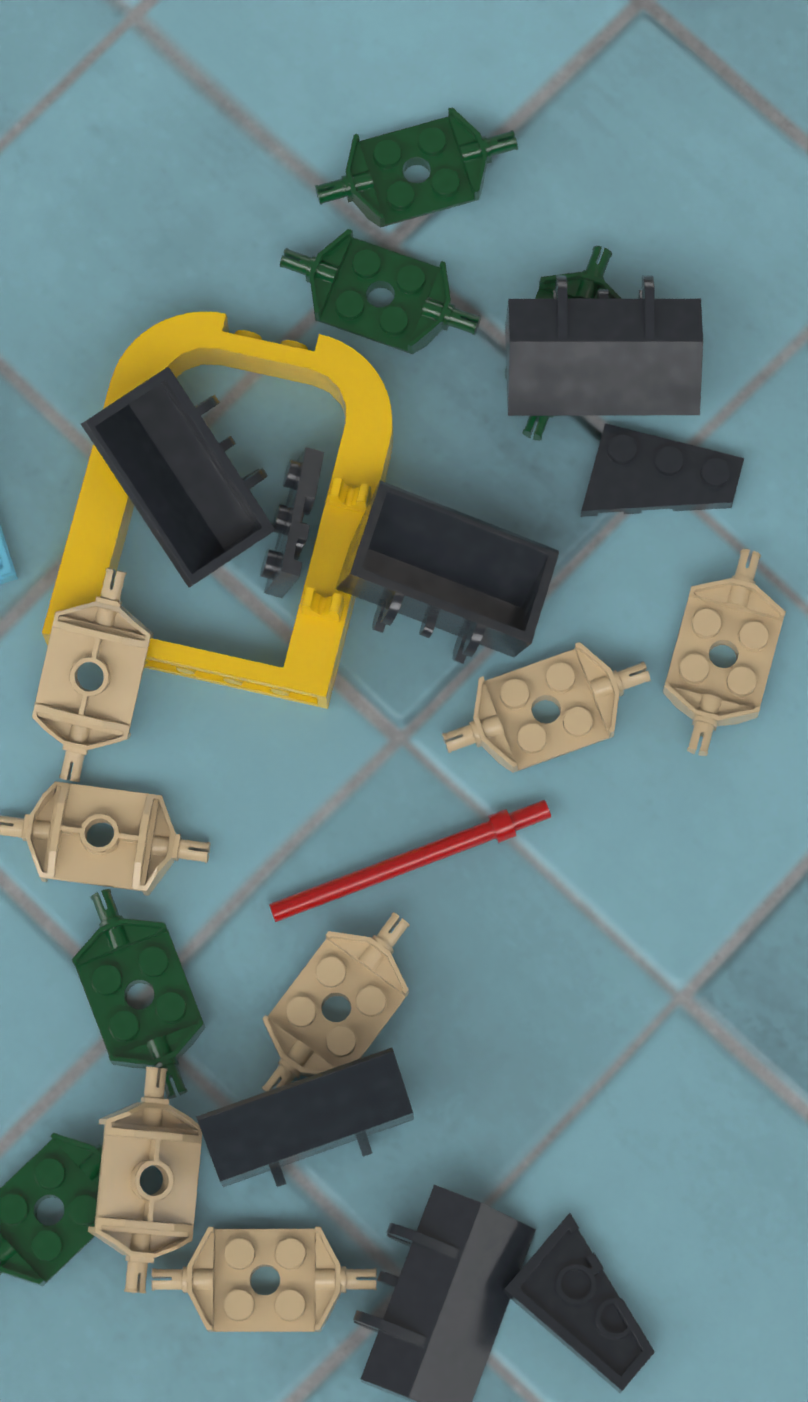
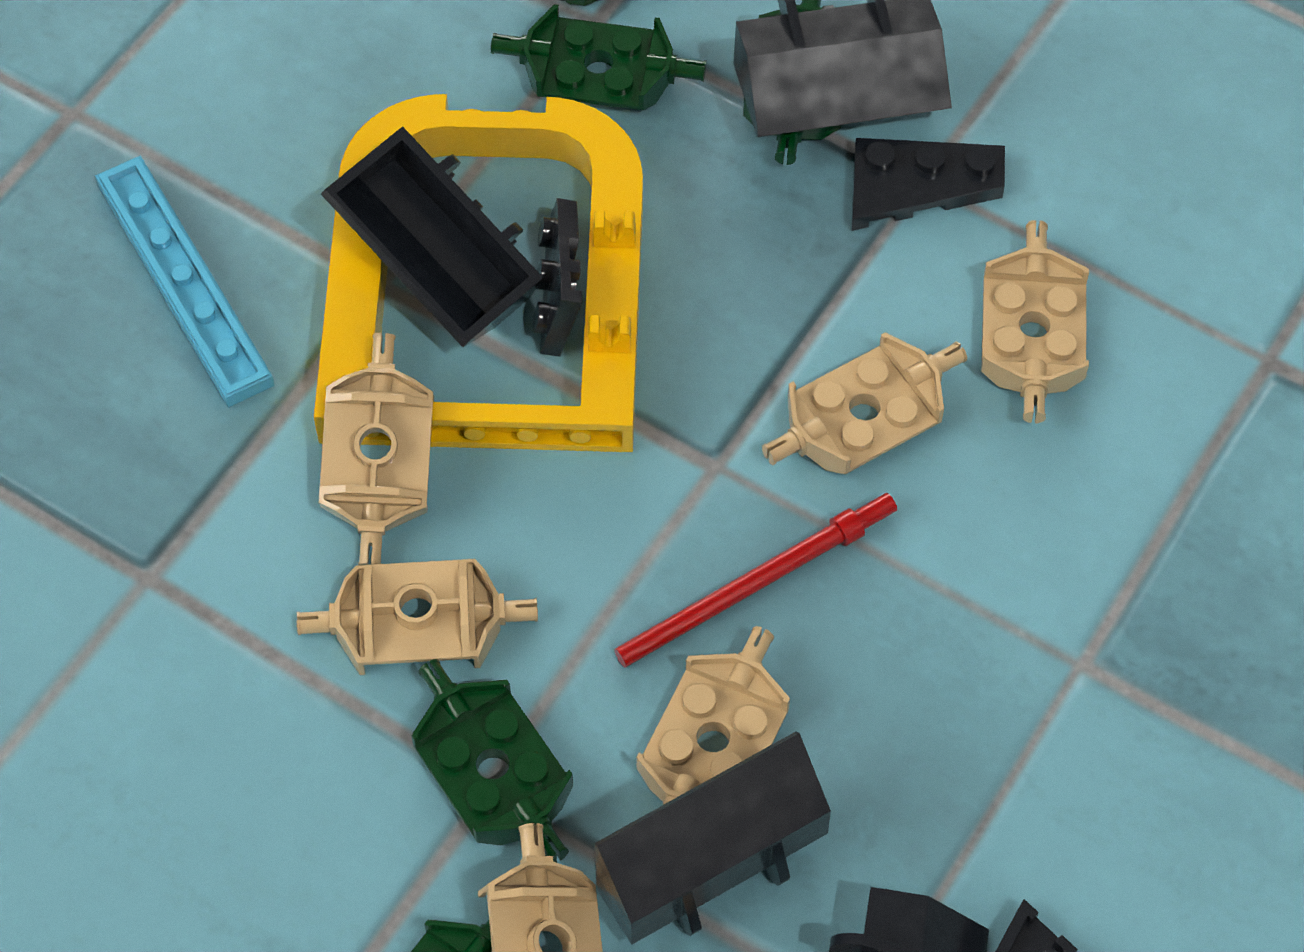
camera: 15 degrees left, 15 degrees down
(447, 572) = (732, 287): black piece -> none

